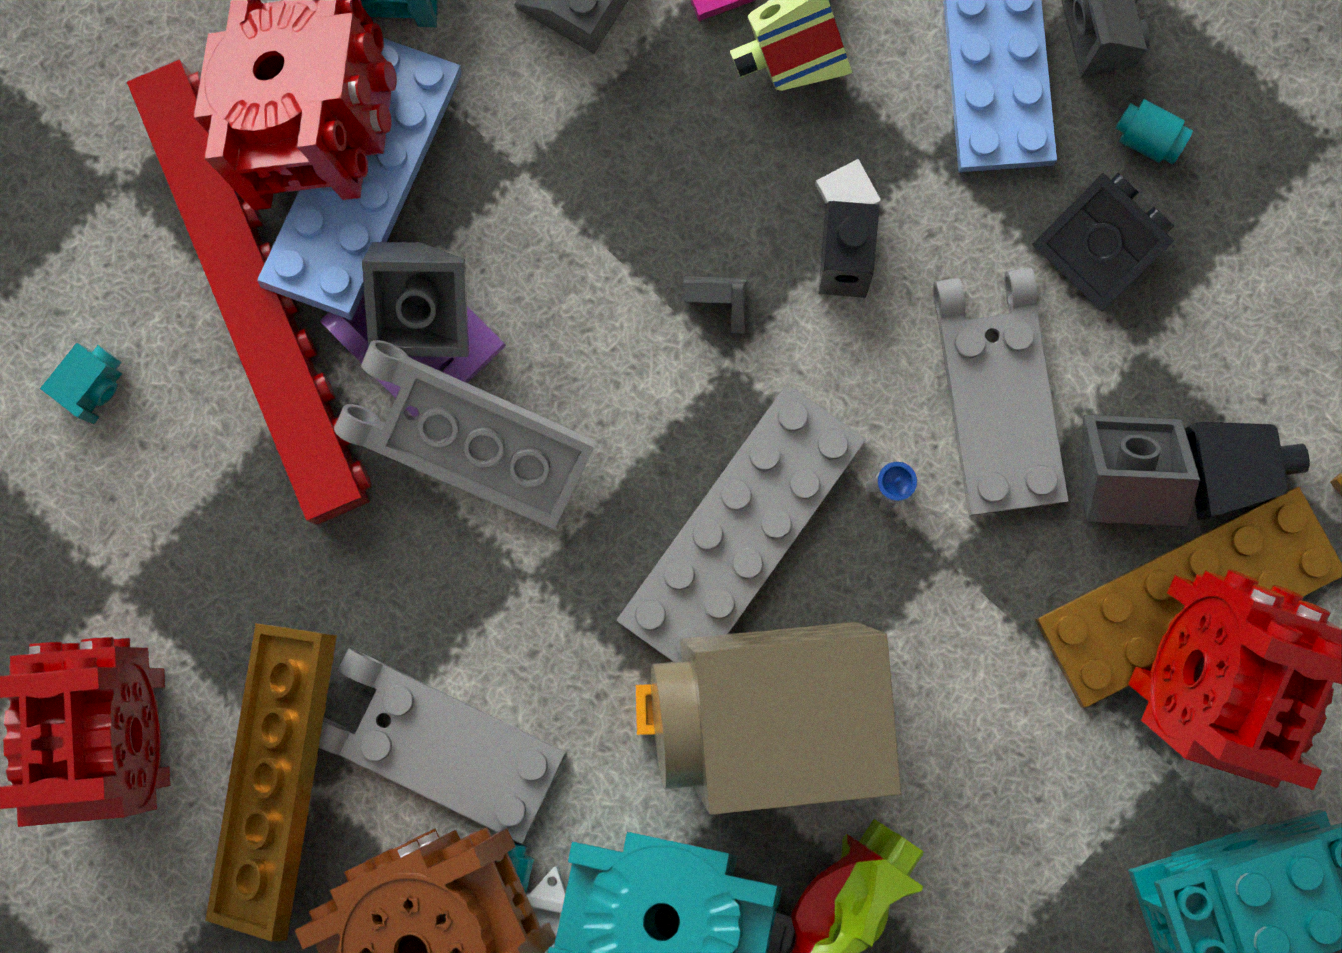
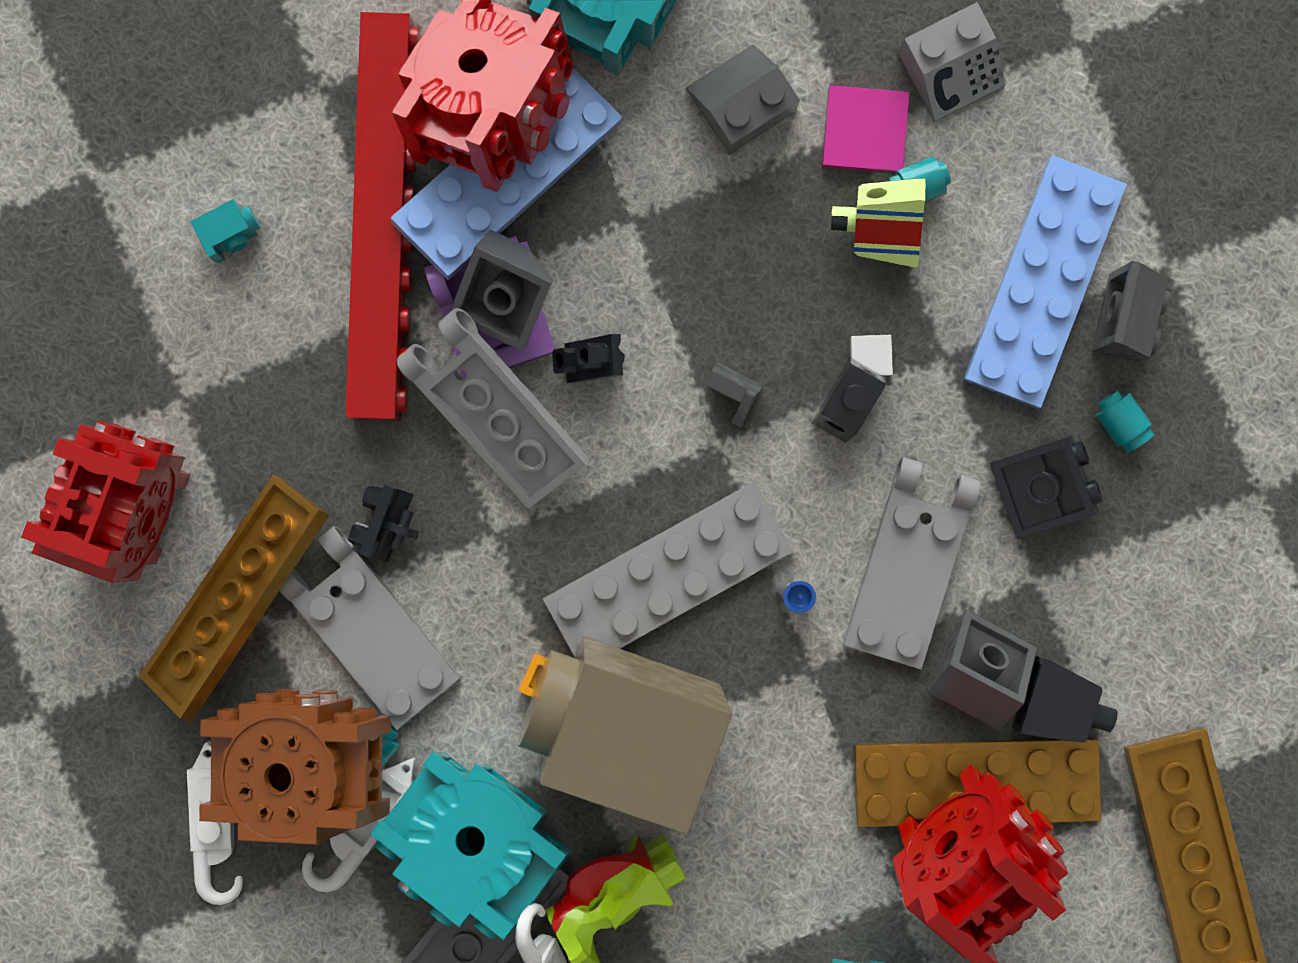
camera: 15 degrees right, 5 degrees up
(407, 618) = (388, 524): none -> black hips
(545, 334) = (590, 359): none -> black hips

